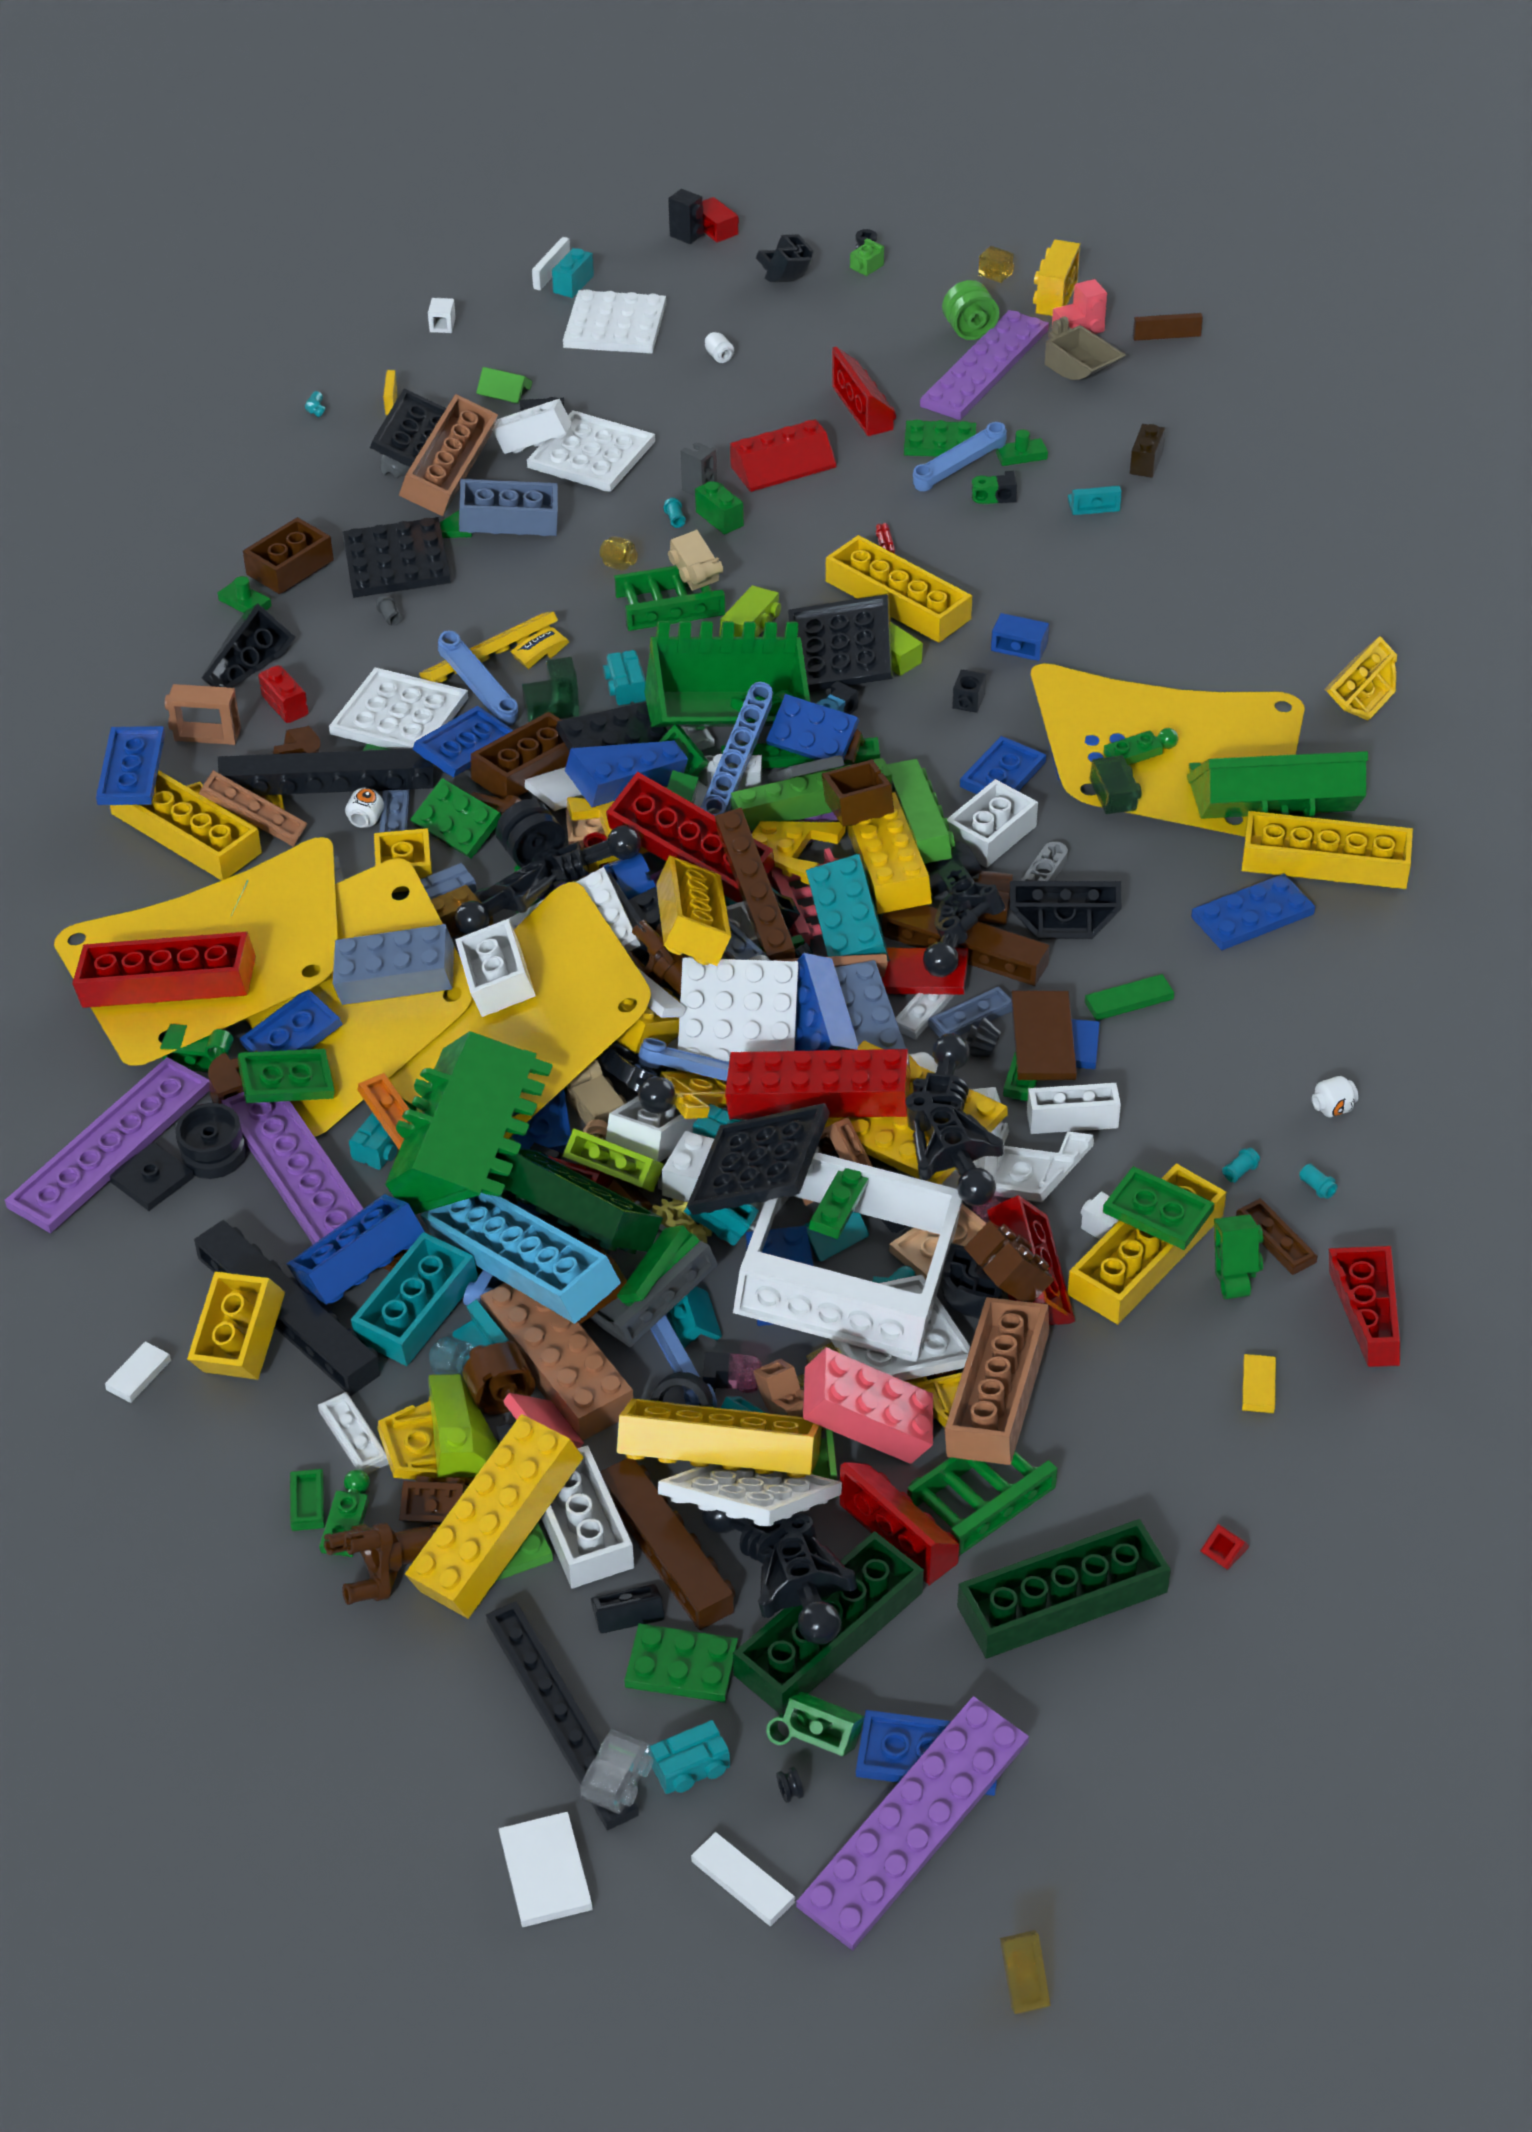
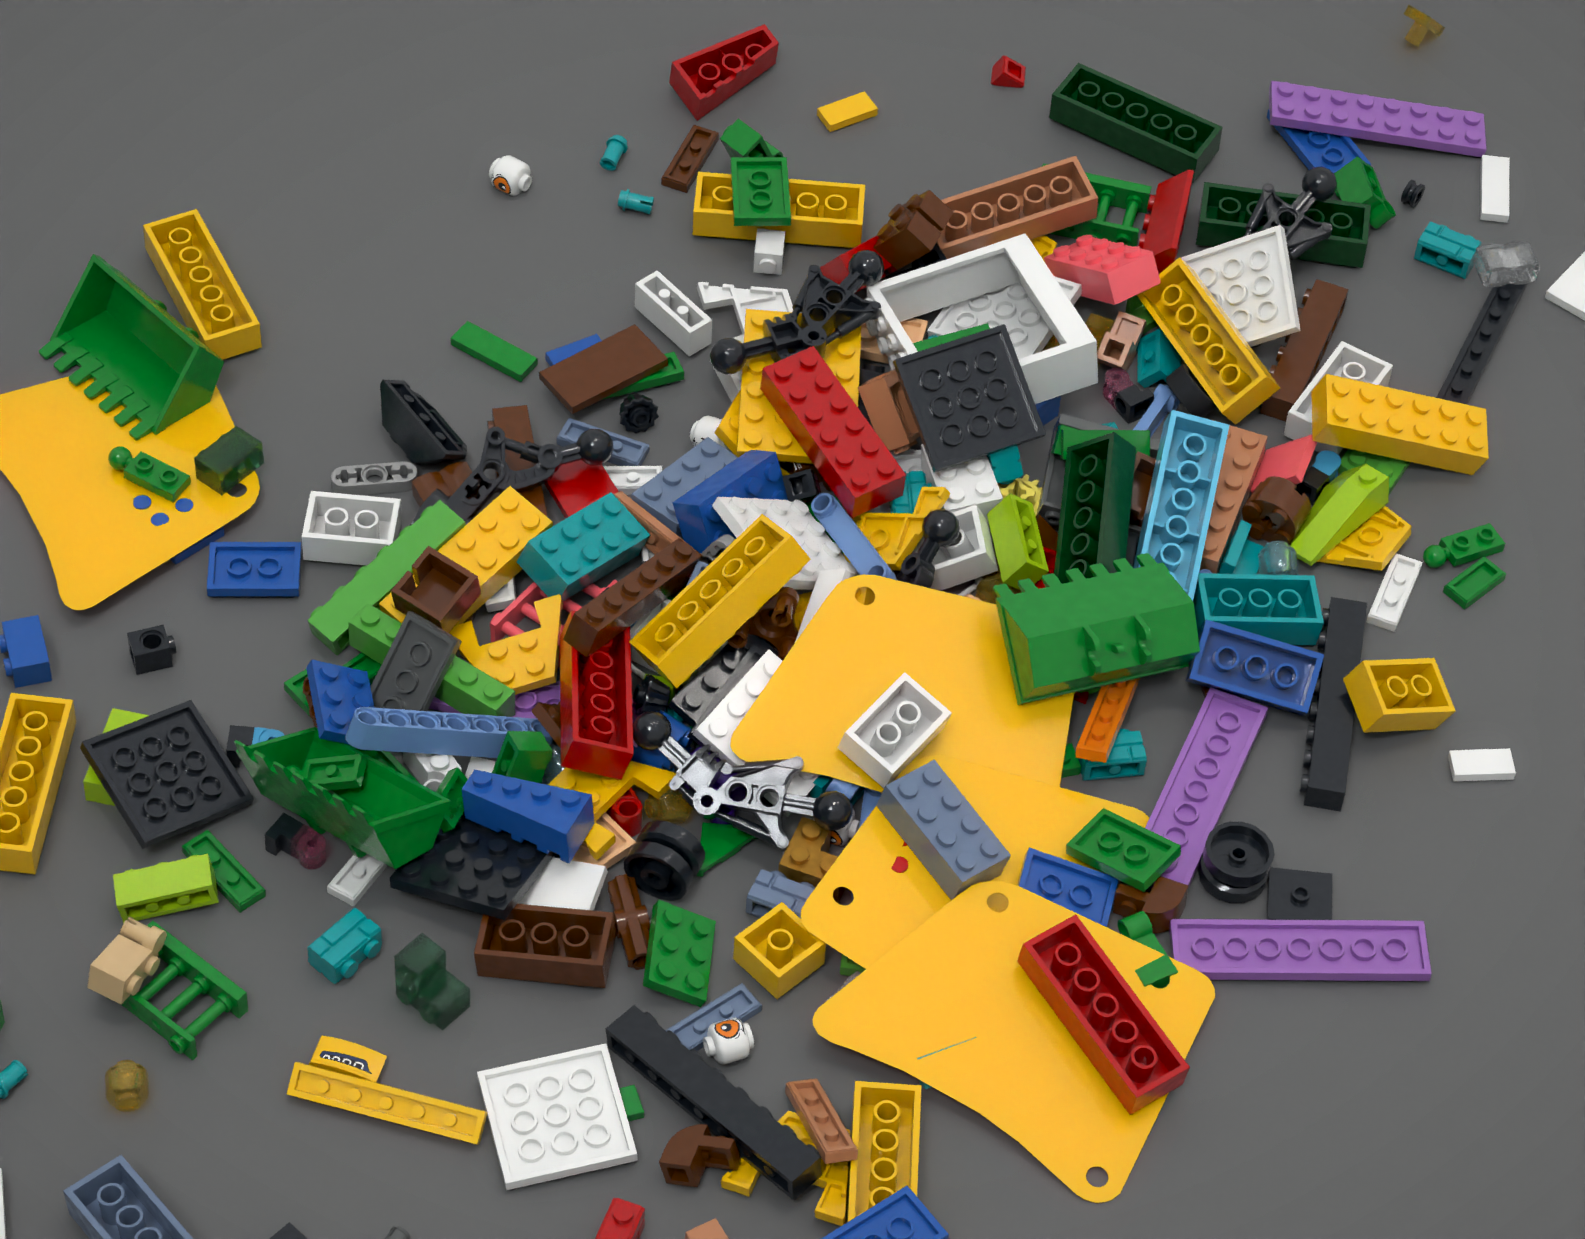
camera: 130 degrees left, 5 degrees up
(383, 1554) = (1483, 486): reddish brown wheel -> none
(429, 1501) = (1407, 494): reddish brown bracket -> none
(453, 743) = (569, 1006): blue plate -> none
(477, 678) = (458, 1065): medium blue piece -> none
(627, 1608) = (1371, 345): black slope -> none
(681, 1663) = (1381, 299): green plate -> none
(1253, 911) = (313, 318): blue plate -> none

